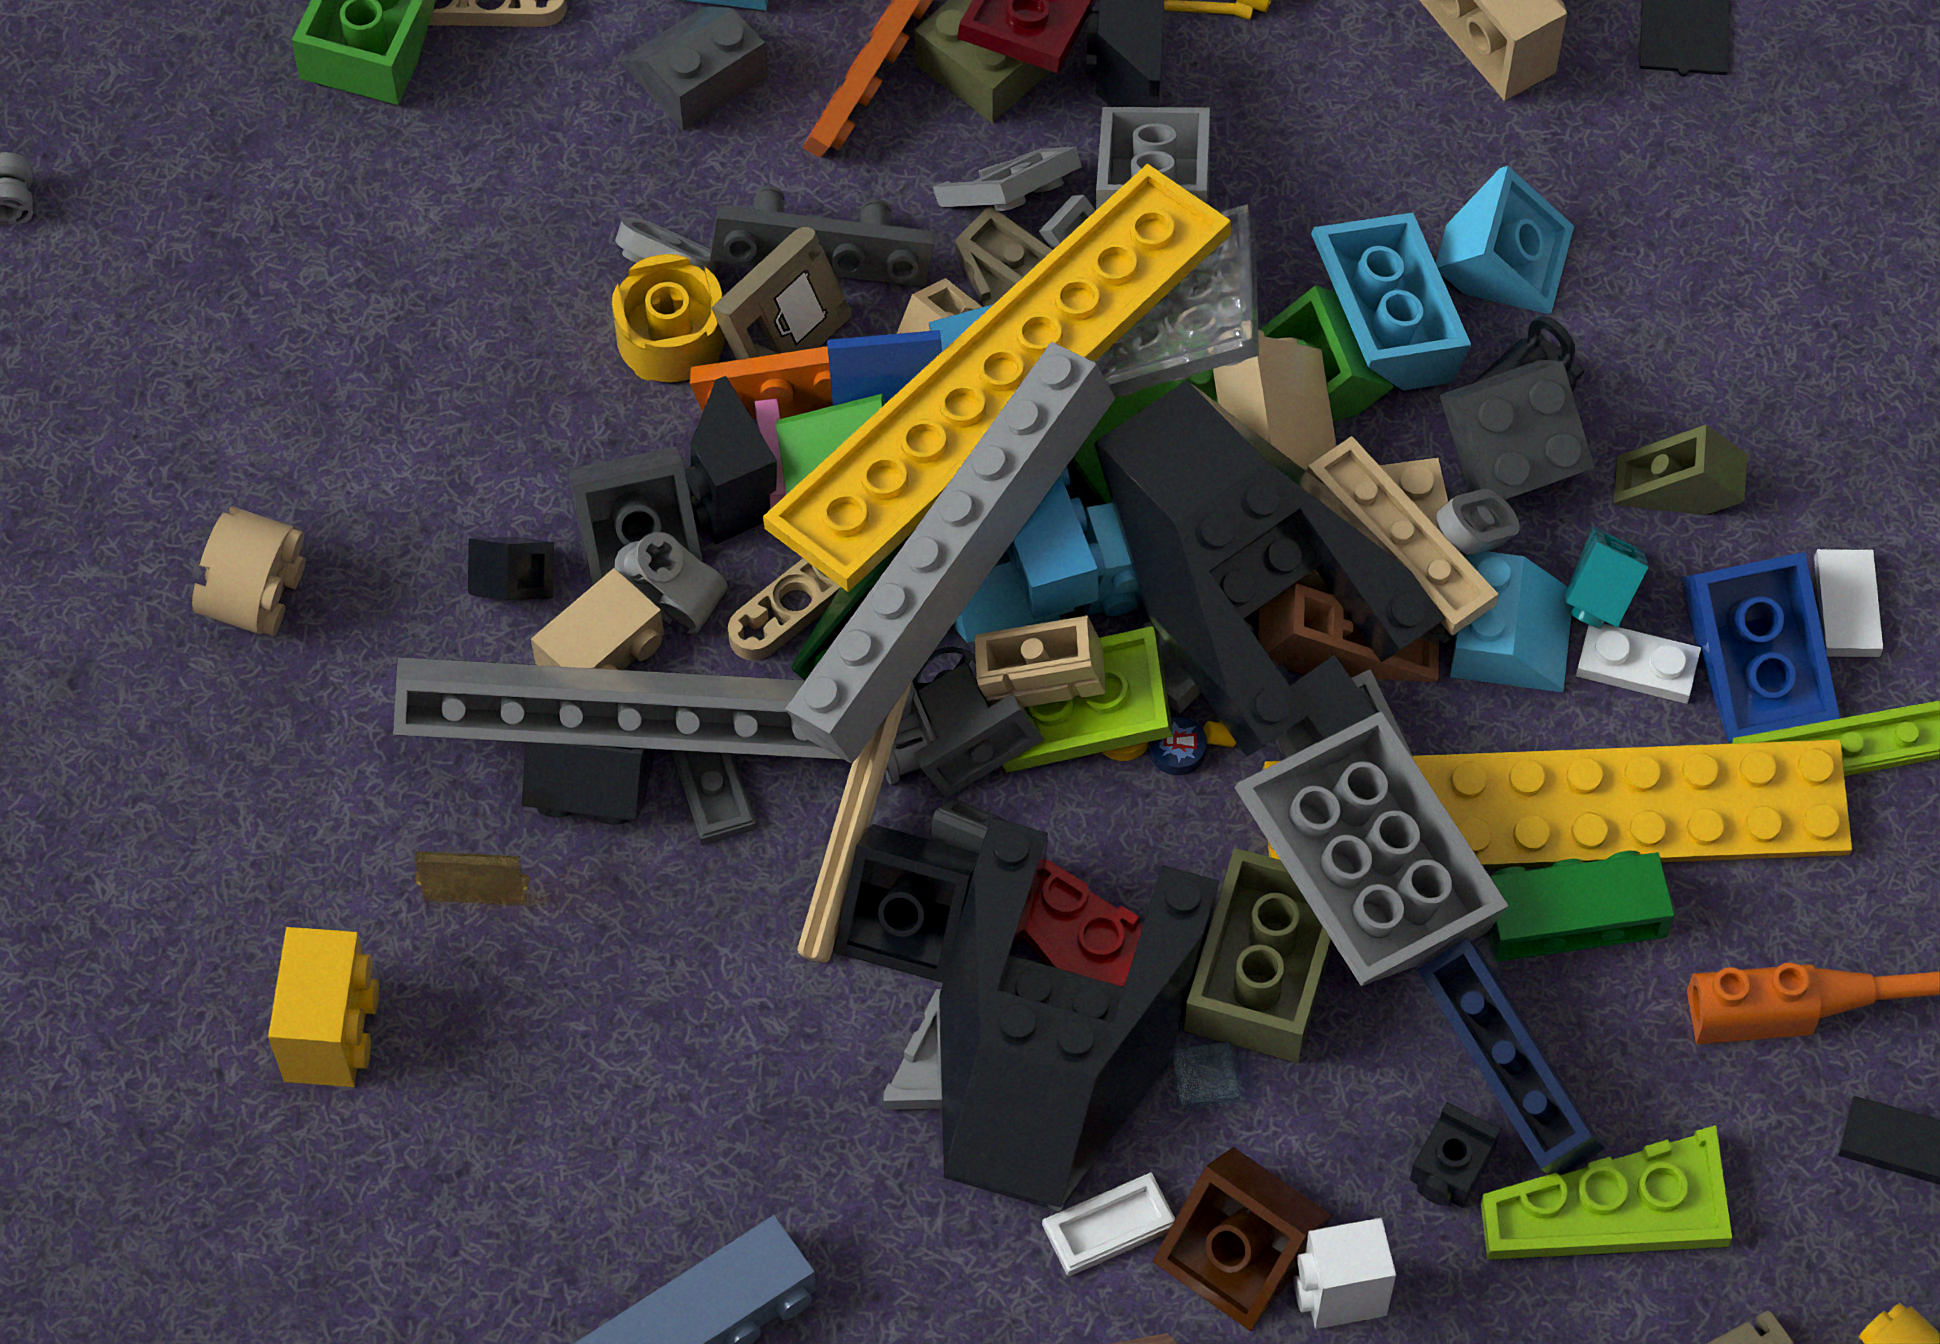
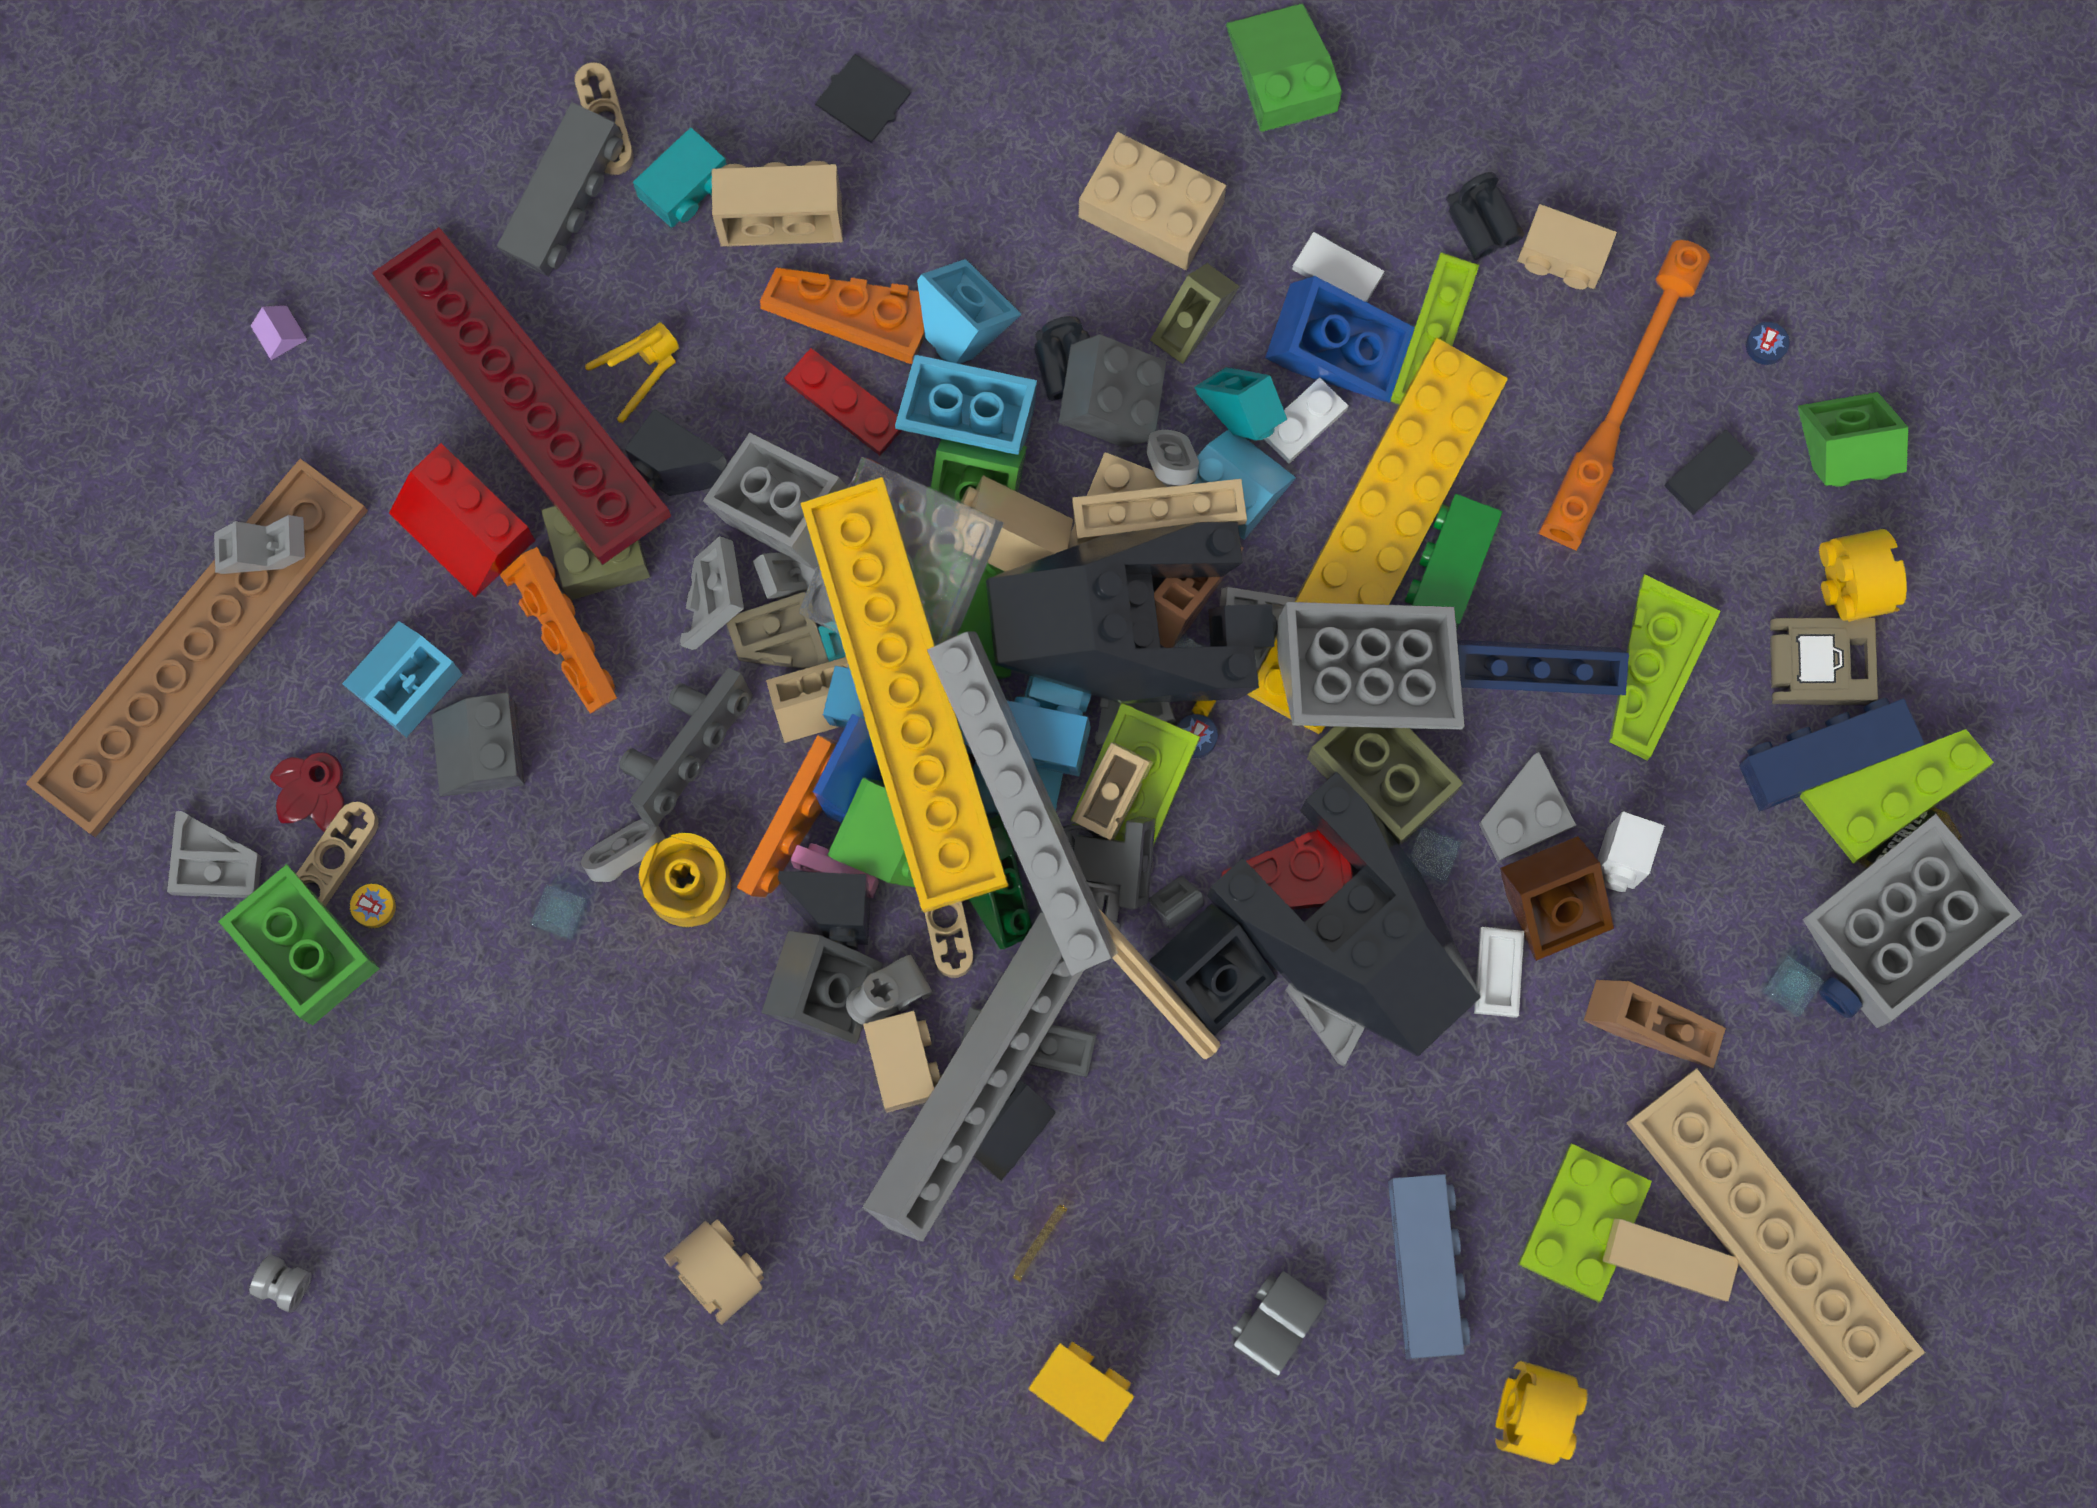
camera: 60 degrees left, 15 degrees up
(461, 63) = (372, 906): none -> yellow tile
(510, 568) = (810, 1091): black panel -> none
(528, 1190) = (1278, 1322): none -> dark grey brick
(562, 232) = (559, 912): none -> clear light blue tile
(790, 295) = (728, 799): dark tan container -> none
(1319, 189) = (844, 401): none -> red plate
(1327, 1152) = (1526, 812): none -> light grey wing
(1426, 142) = (860, 313): none -> orange wing
(1464, 1135) = (1561, 734): black brick -> none
(1779, 362) = (1151, 200): none -> tan brick

